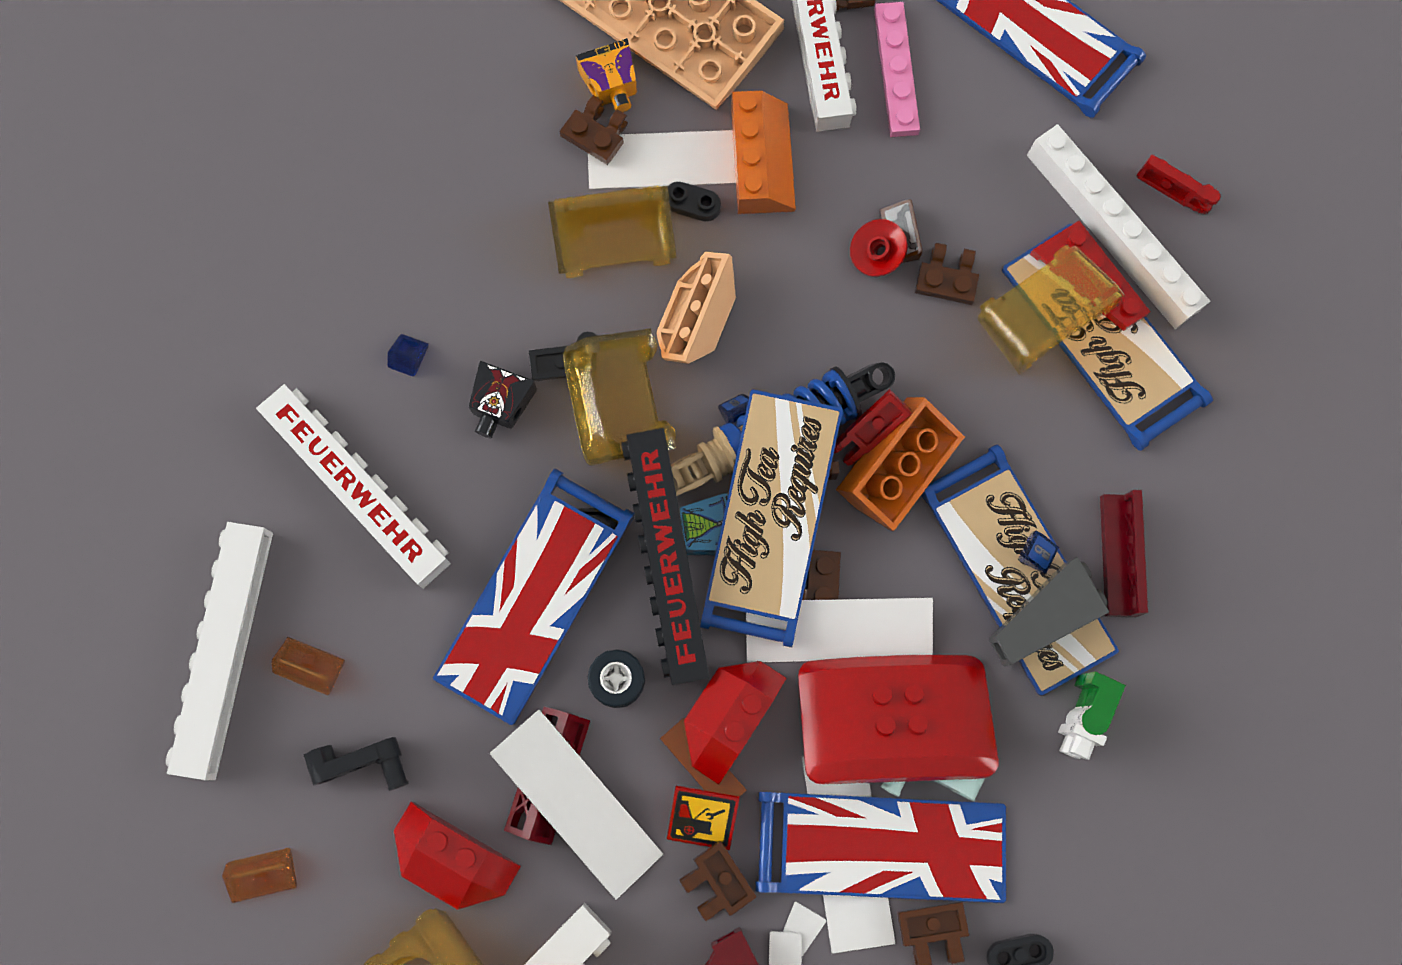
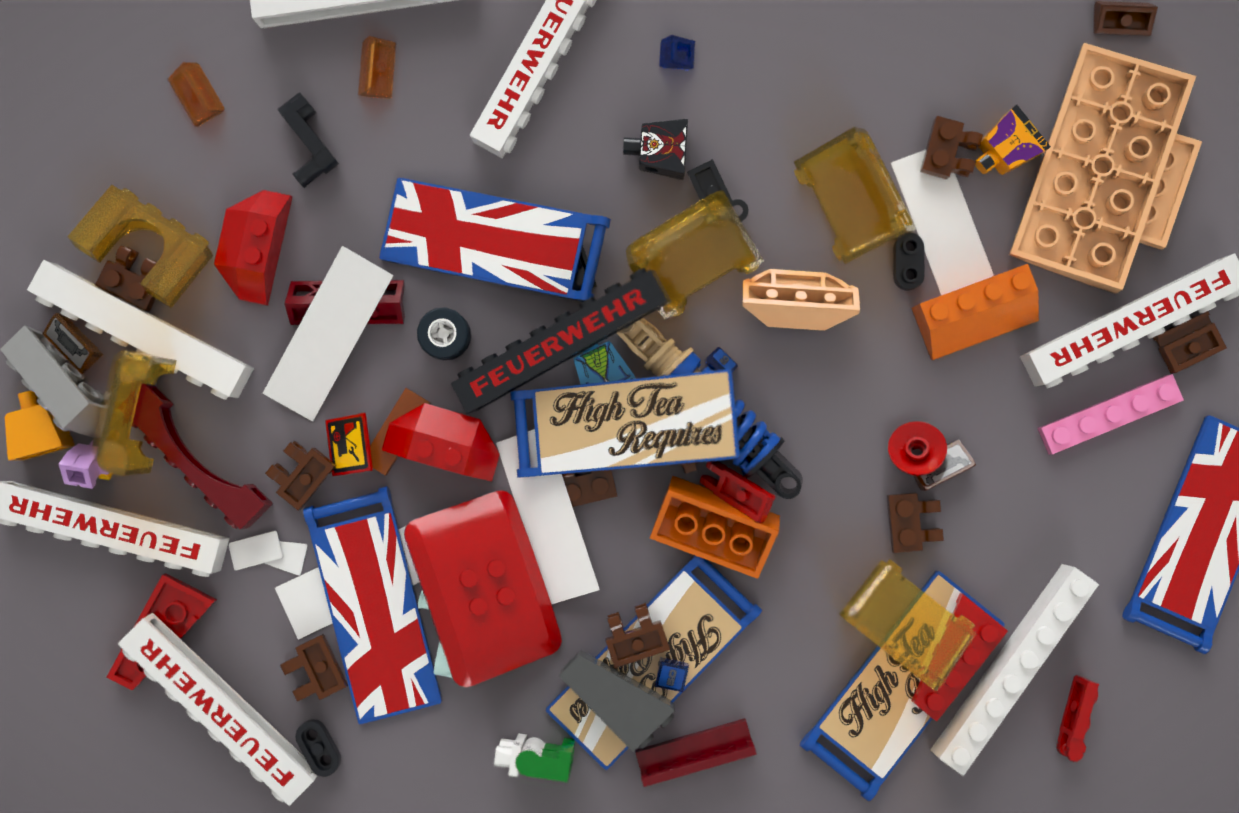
camera: 80 degrees right, 10 degrees up
(998, 576) = (638, 642): none -> reddish brown plate

